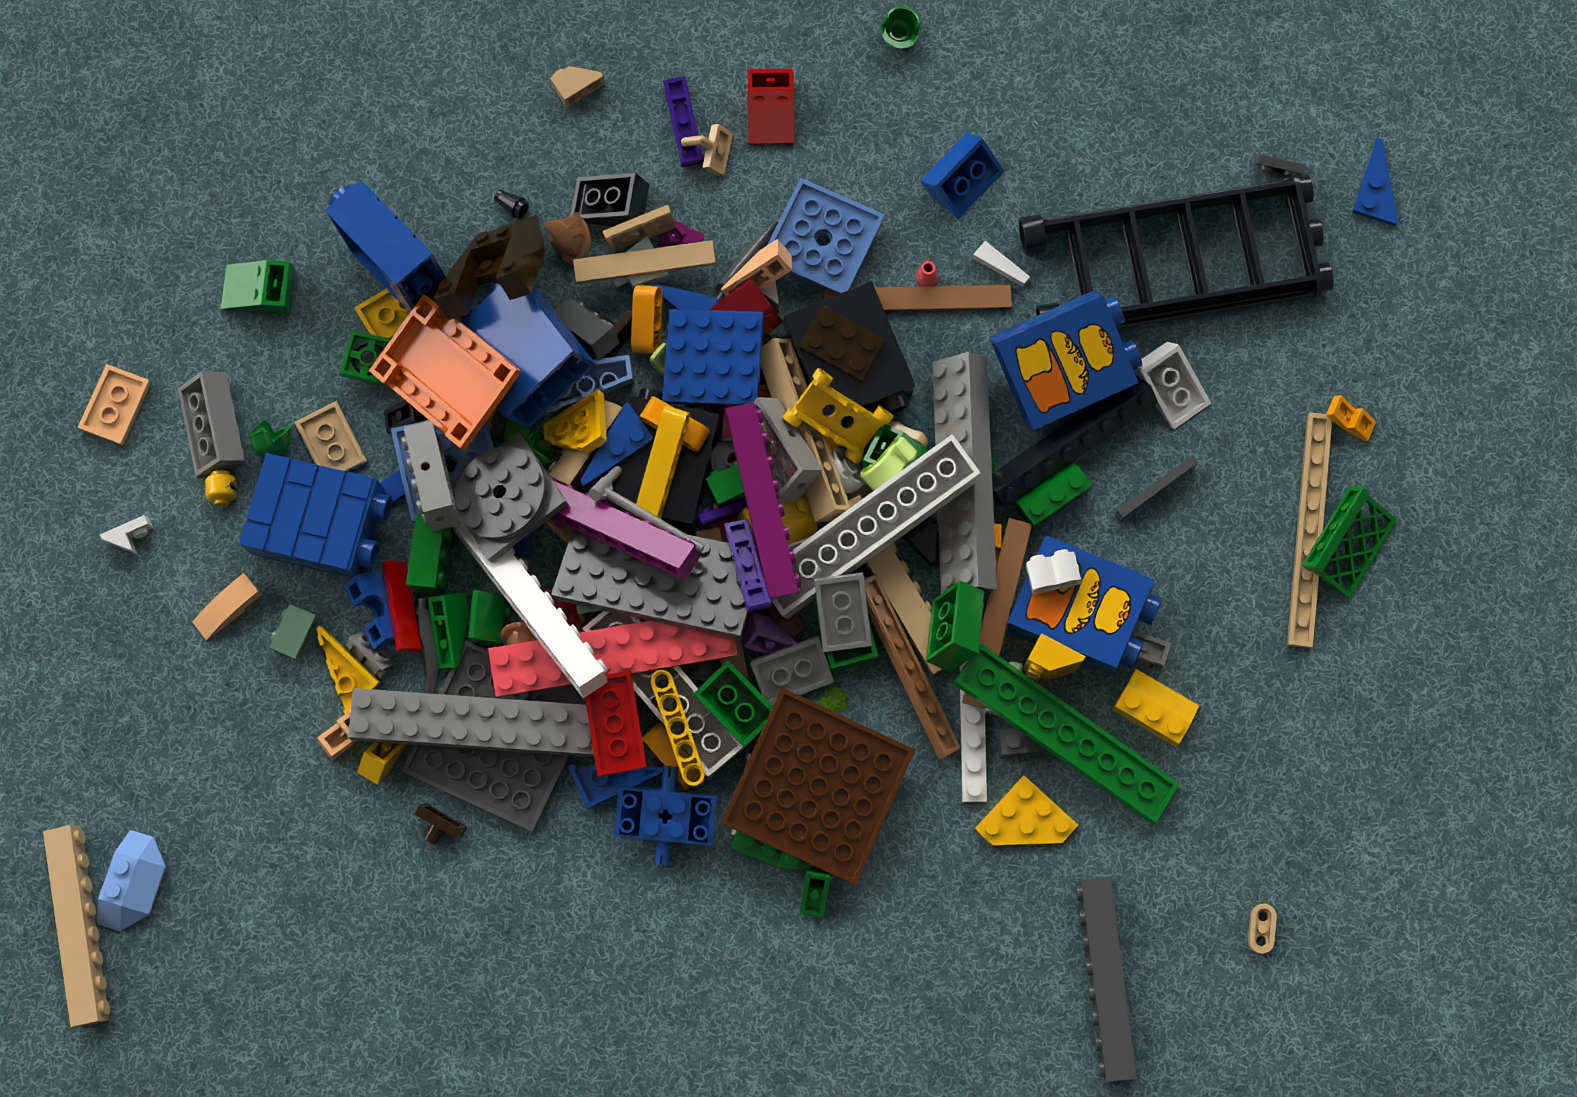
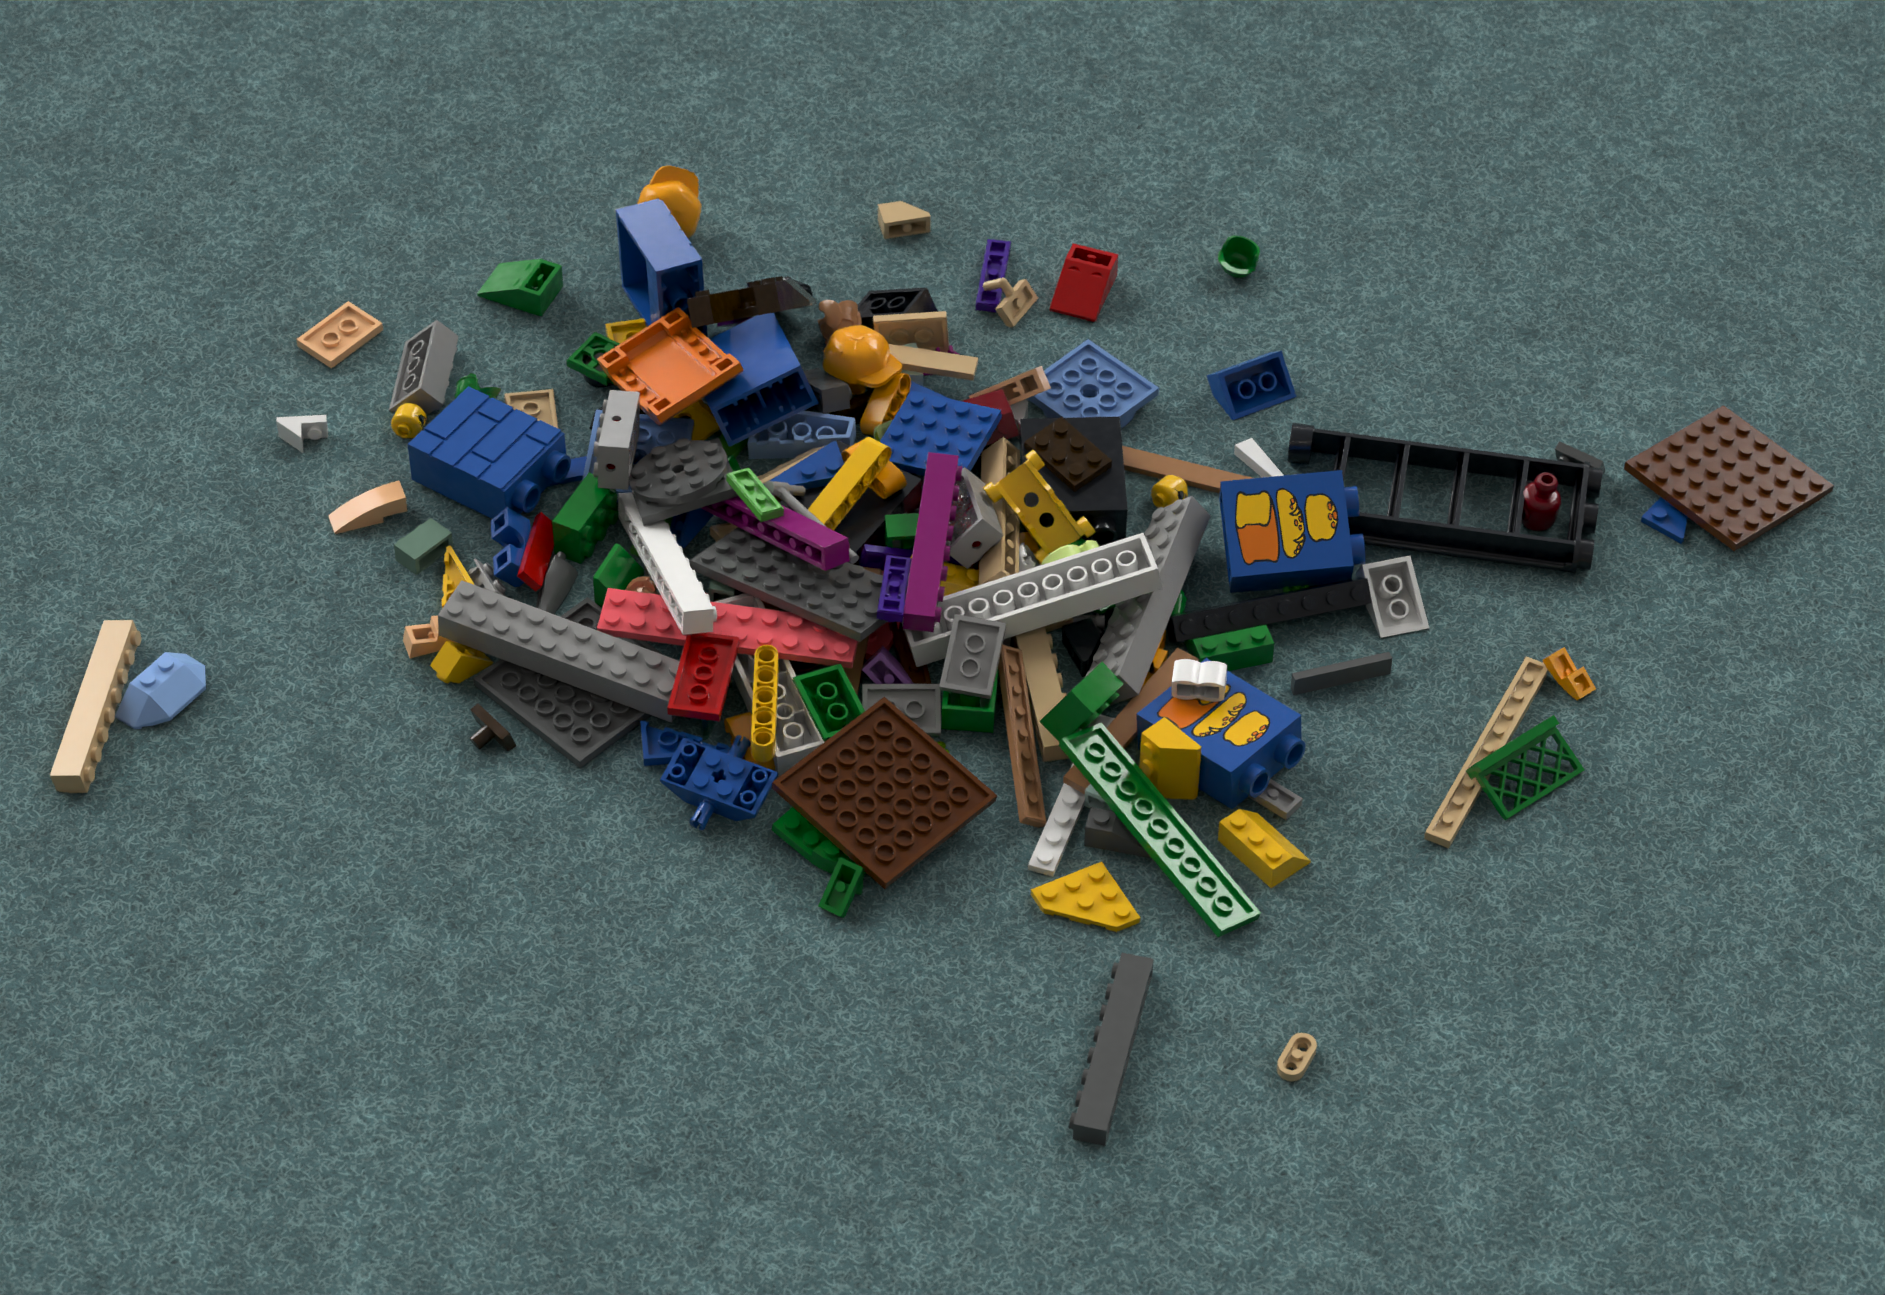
camera: 15 degrees right, 30 degrees down
(361, 152) = (680, 194): none -> light orange piece
(449, 625) = (576, 577): green slope -> none
(579, 426) = (786, 454): yellow plate -> none
(585, 509) = (755, 494): none -> bright green tile
(610, 286) = (860, 358): none -> light orange piece
(927, 278) = (1182, 446): coral cone -> none
(934, 330) = (1168, 491): none -> yellow head
(1269, 233) = (1541, 503): none -> dark red piece
(1415, 138) = (1728, 477): none -> reddish brown plate

